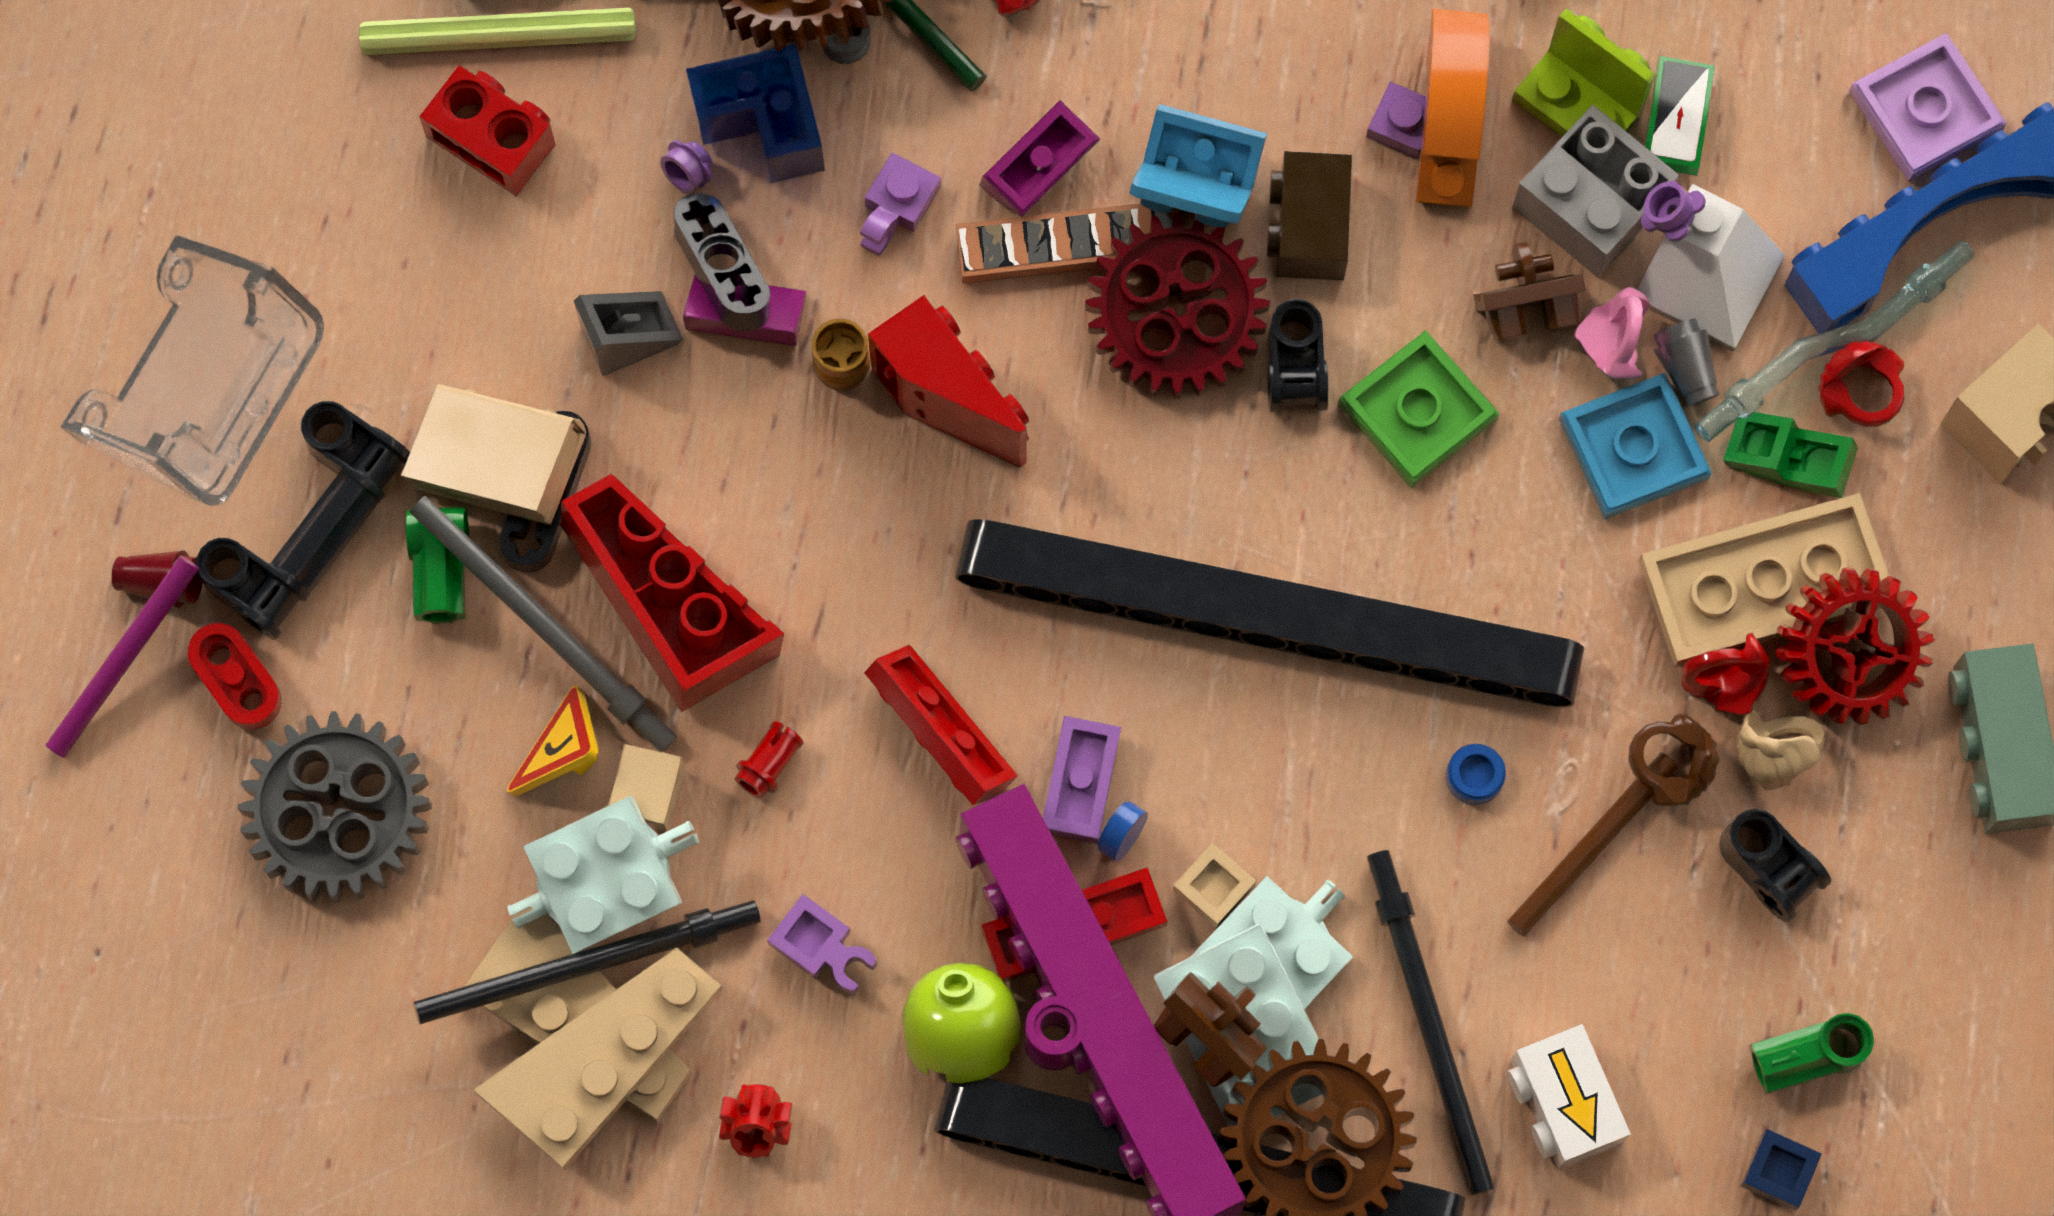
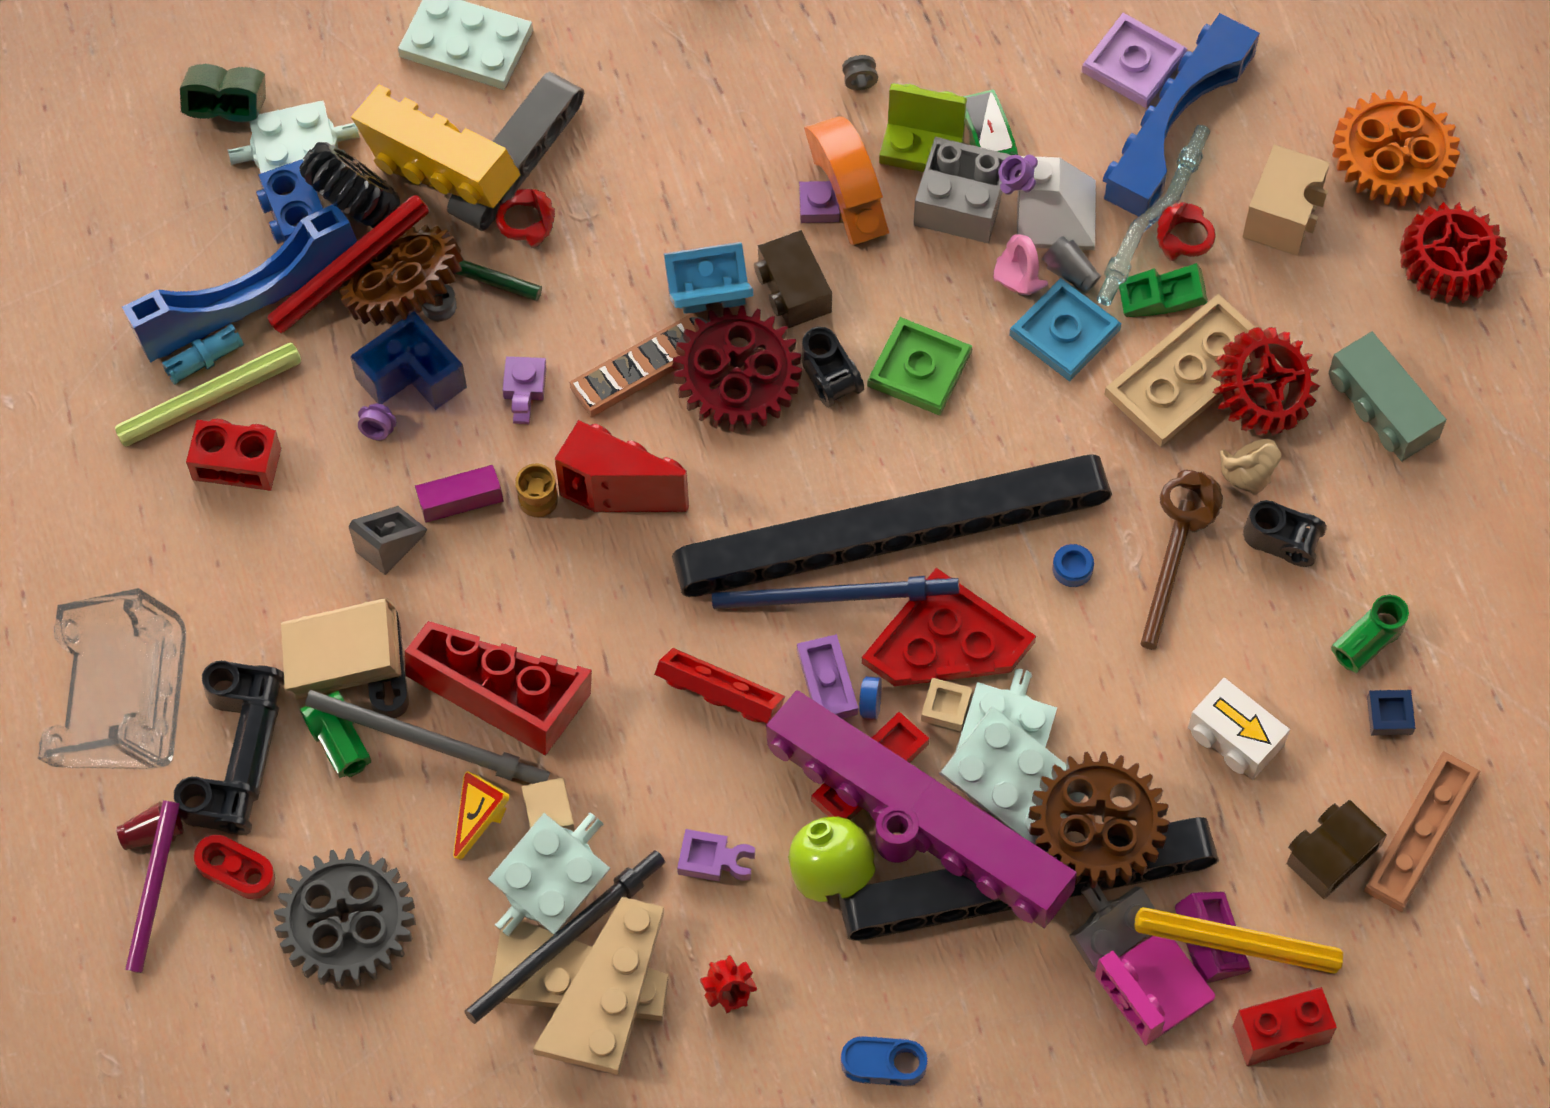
camera: 25 degrees left, 10 degrees down
(721, 283) = (437, 481): black beam -> none
(768, 760) = (618, 759): red pin -> none
(1039, 159) = (603, 320): magenta slope -> none
(1218, 1023) = (1014, 787): reddish brown hips -> none
(1248, 714) = (916, 588): none -> dark blue bar
(1260, 795) = (947, 640): none -> red plate
(1396, 912) = (1069, 669): black bar -> none
(1556, 295) = (970, 261): reddish brown hips -> none
(1729, 676) = (1197, 434): red piece -> none

